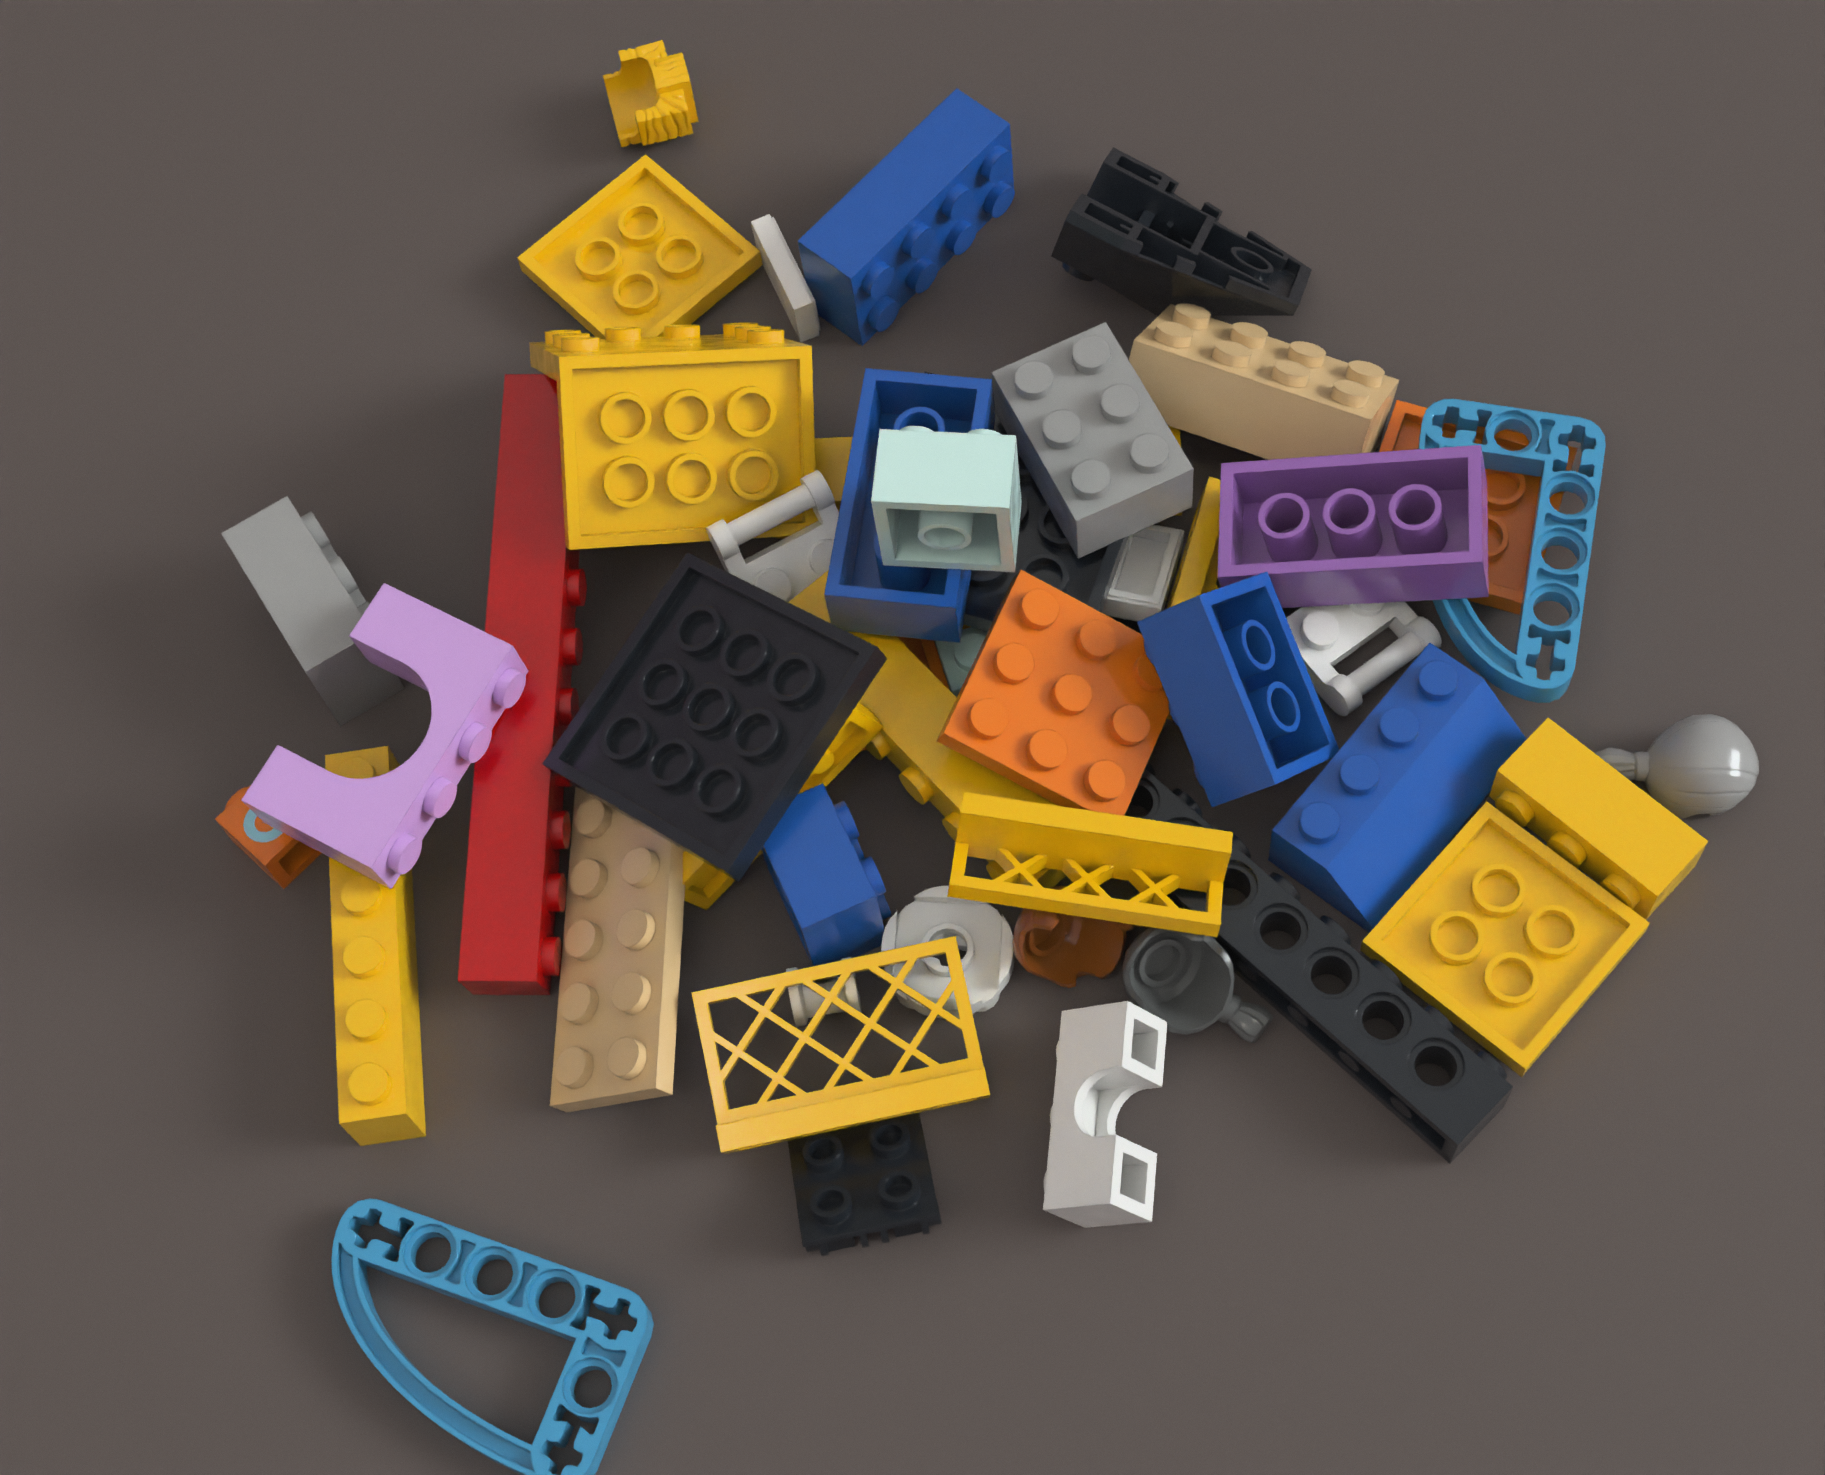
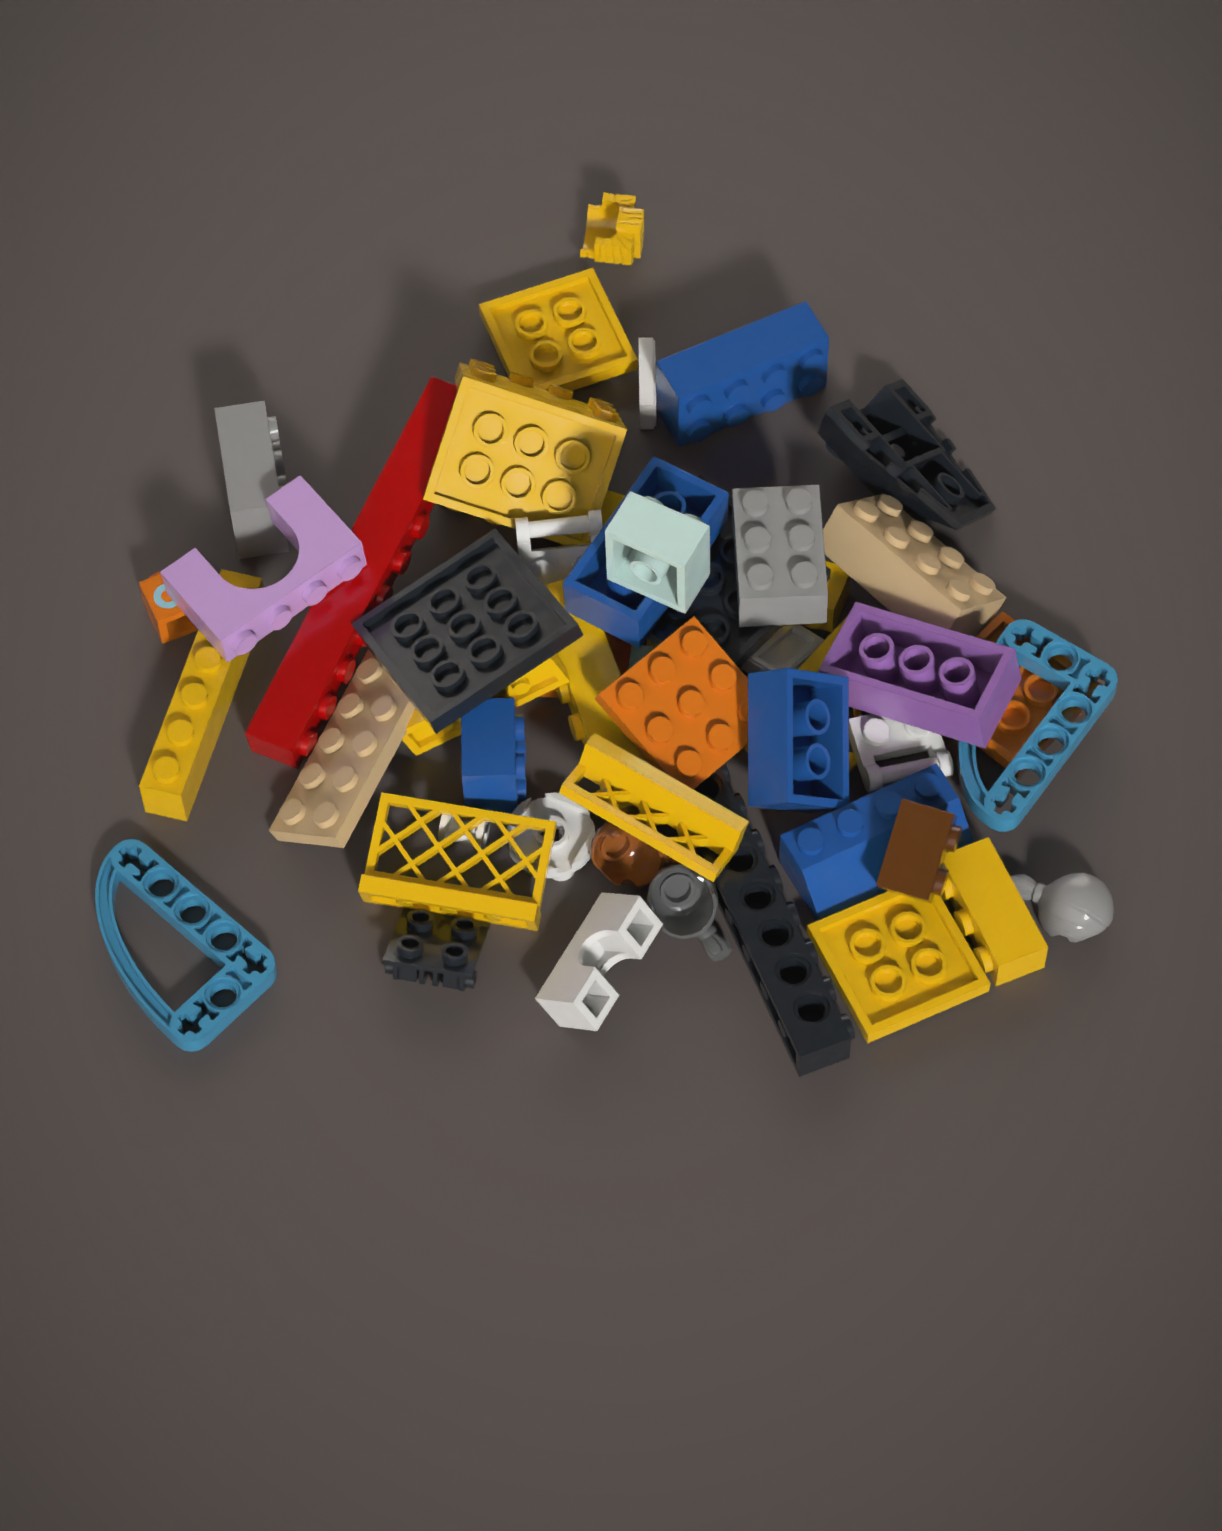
camera: 15 degrees right, 5 degrees down
(1477, 779) = (918, 851): none -> reddish brown brick

